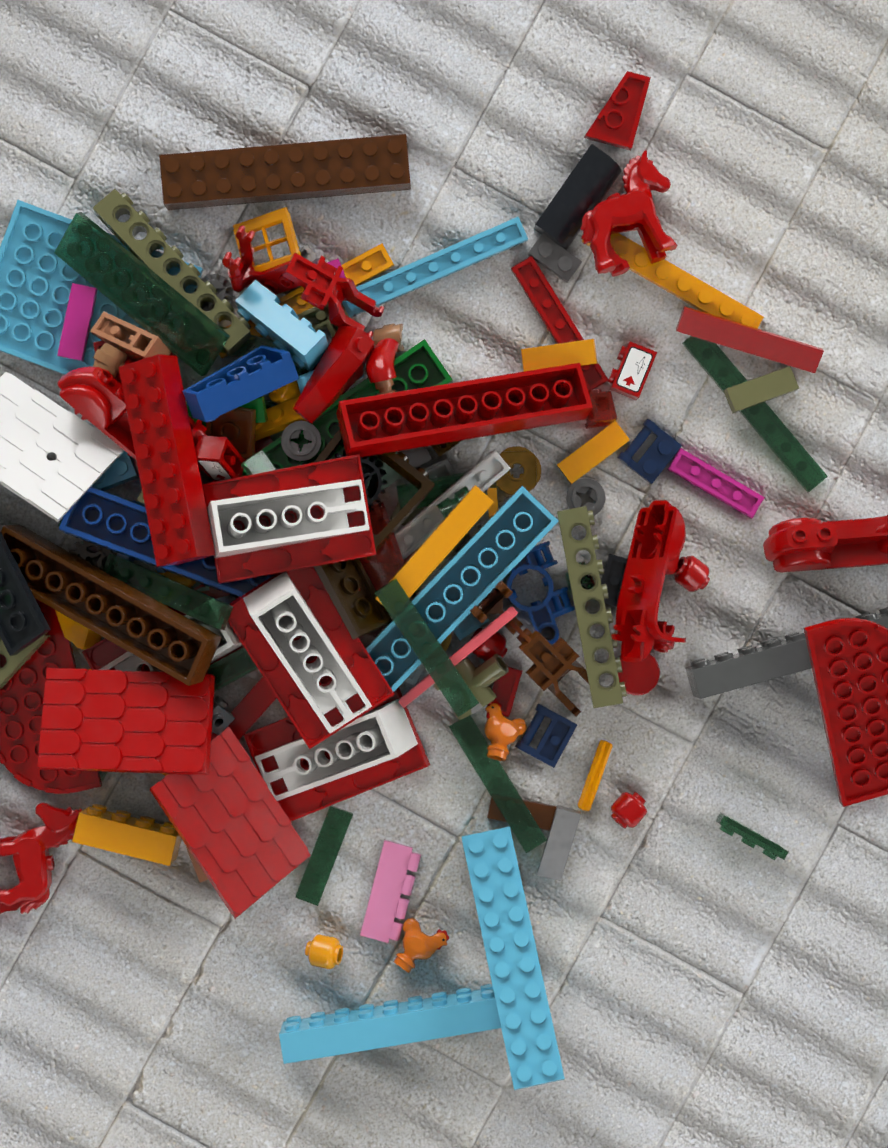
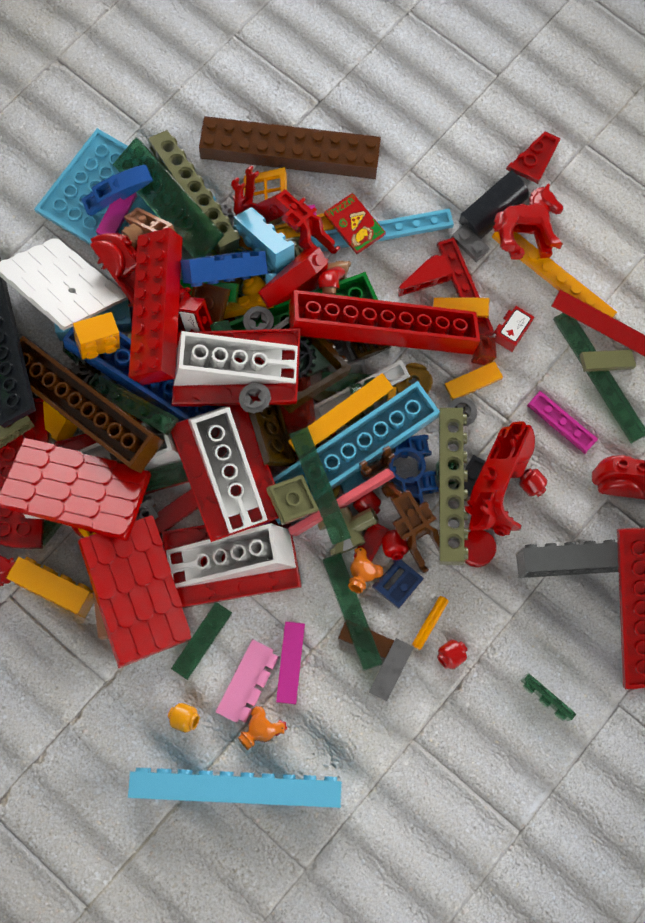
camera: 10 degrees right, 15 degrees down
(69, 293) = (115, 187): none -> blue slope
(103, 522) = (96, 336): none -> light orange brick
(312, 567) = (253, 390): none -> flat silver gear
(396, 268) = (354, 223): none -> tile
(397, 673) = (292, 499): none -> olive tile
(436, 859) = (290, 663): none -> dark pink tile
(511, 315) = (429, 274): none -> red slope
(512, 959) = (336, 752): medium azure brick -> none
(531, 694) = (393, 545): none -> red head
(655, 457) = (519, 394): dark blue plate -> none

